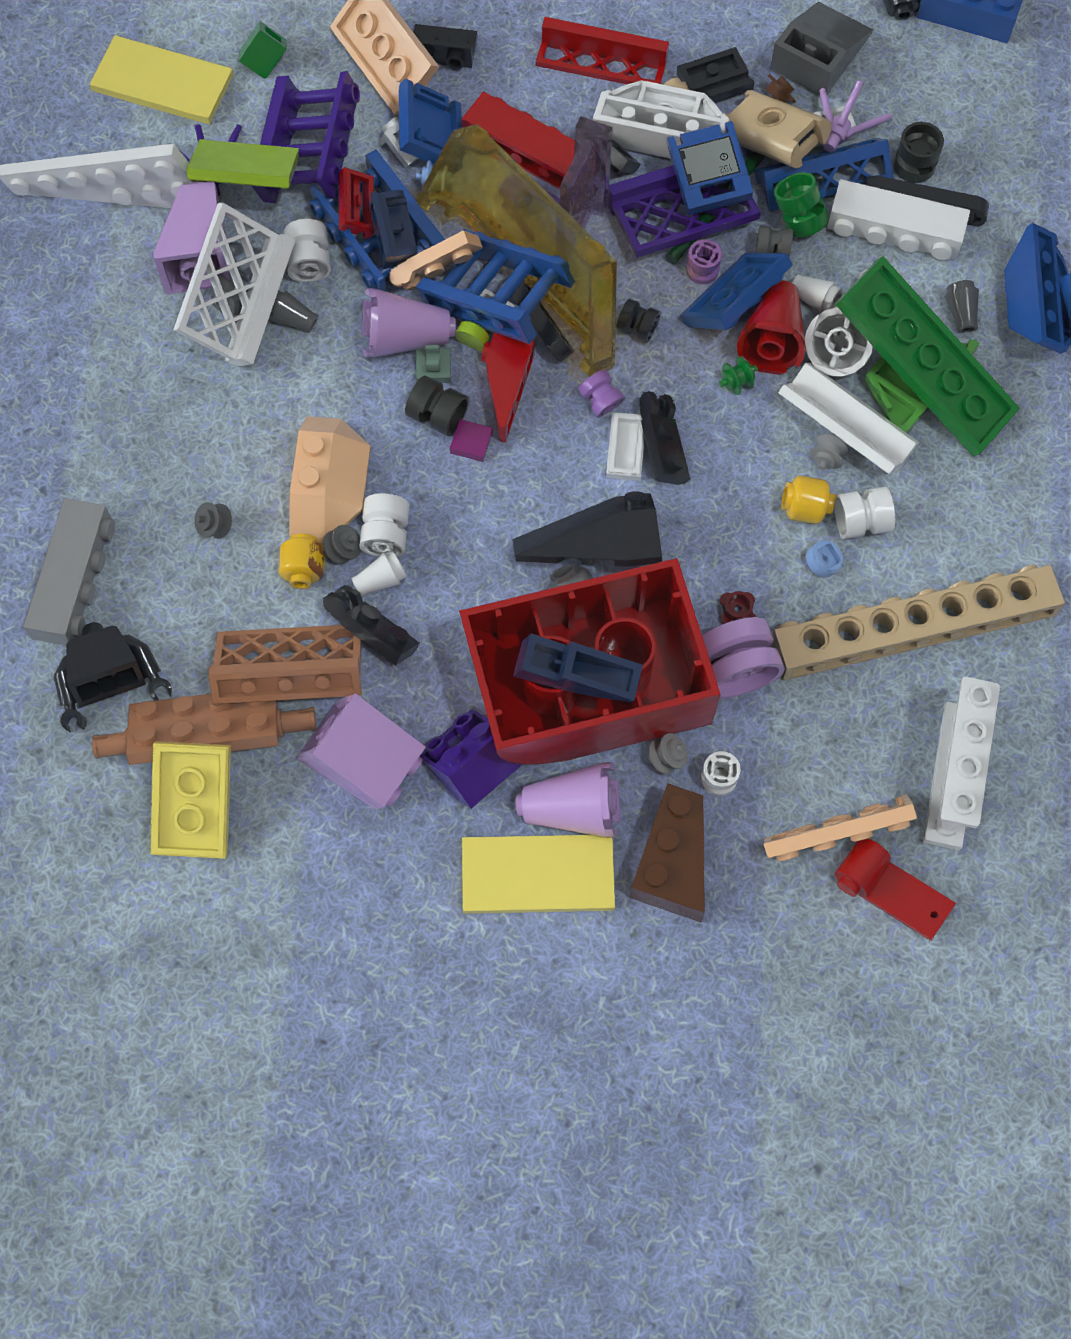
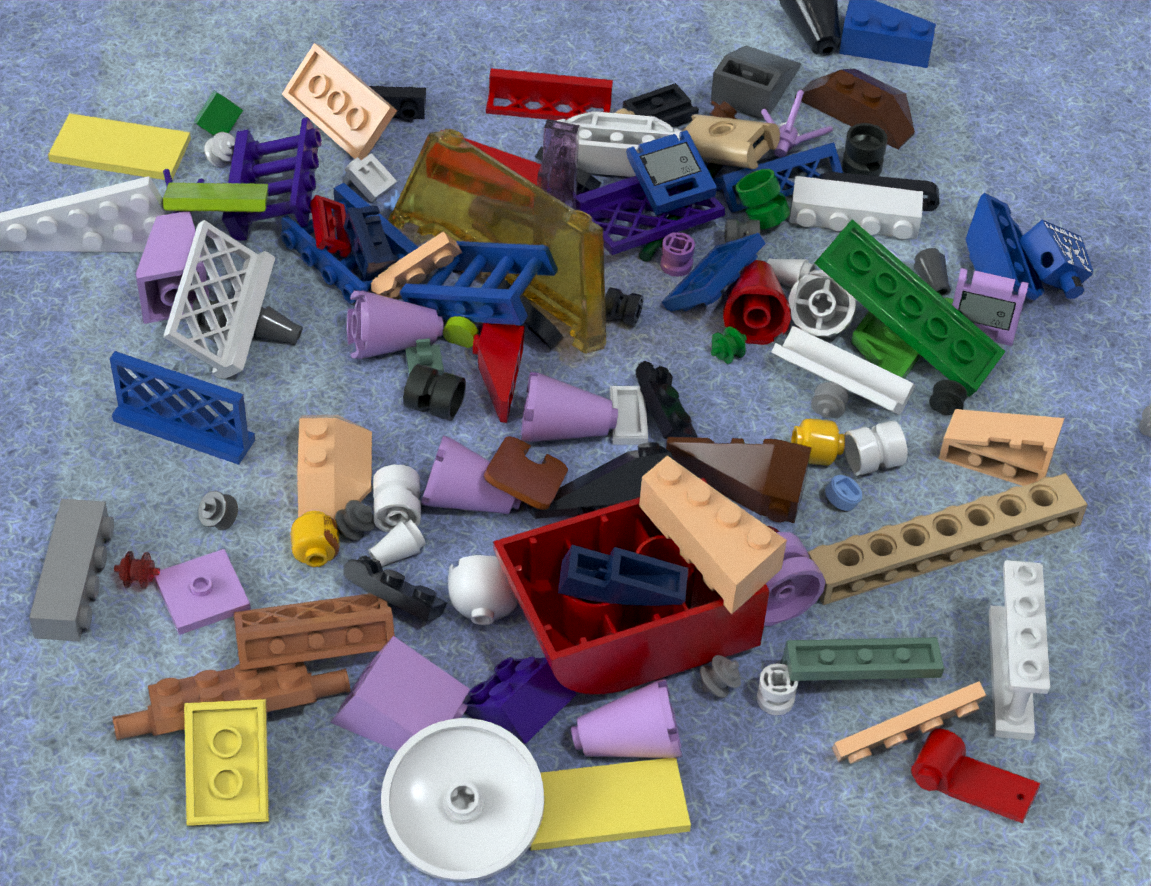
camera: 10 degrees left, 20 degrees down
(103, 666) = (116, 649): black torso -> none
(132, 579) = (136, 569): none -> clear red wheel
(186, 409) = (173, 420): none -> blue fence
(190, 606) = (201, 591): none -> lavender plate
(258, 93) = (220, 149): none -> white wheel
(309, 254) = (288, 277): white wheel -> none
(403, 863) = (462, 800): none -> white dish
(424, 120) = (386, 157): blue container -> none
(445, 640) = (480, 589): none -> white cylinder
(457, 515) = (460, 483): none -> lavender cone
(471, 440) = (472, 422): magenta tile -> none
(507, 517) = (523, 478): none -> dark orange piece
(560, 443) = (563, 411): none -> lavender cone
(601, 392) = (597, 369): medium lavender wheel -> none
(672, 630) = (712, 532): none -> light nougat wedge
(673, 858) = (745, 771): reddish brown wedge -> none
(745, 540) = (758, 476): none -> reddish brown wedge
(807, 756) = (863, 659): none -> sand green fence
(928, 87) = (862, 99): none -> reddish brown wedge
(950, 459) = (947, 397): none -> pearl dark grey wheel
(993, 523) = (1002, 444): none -> light nougat wedge
(1012, 360) = (990, 304): none -> container

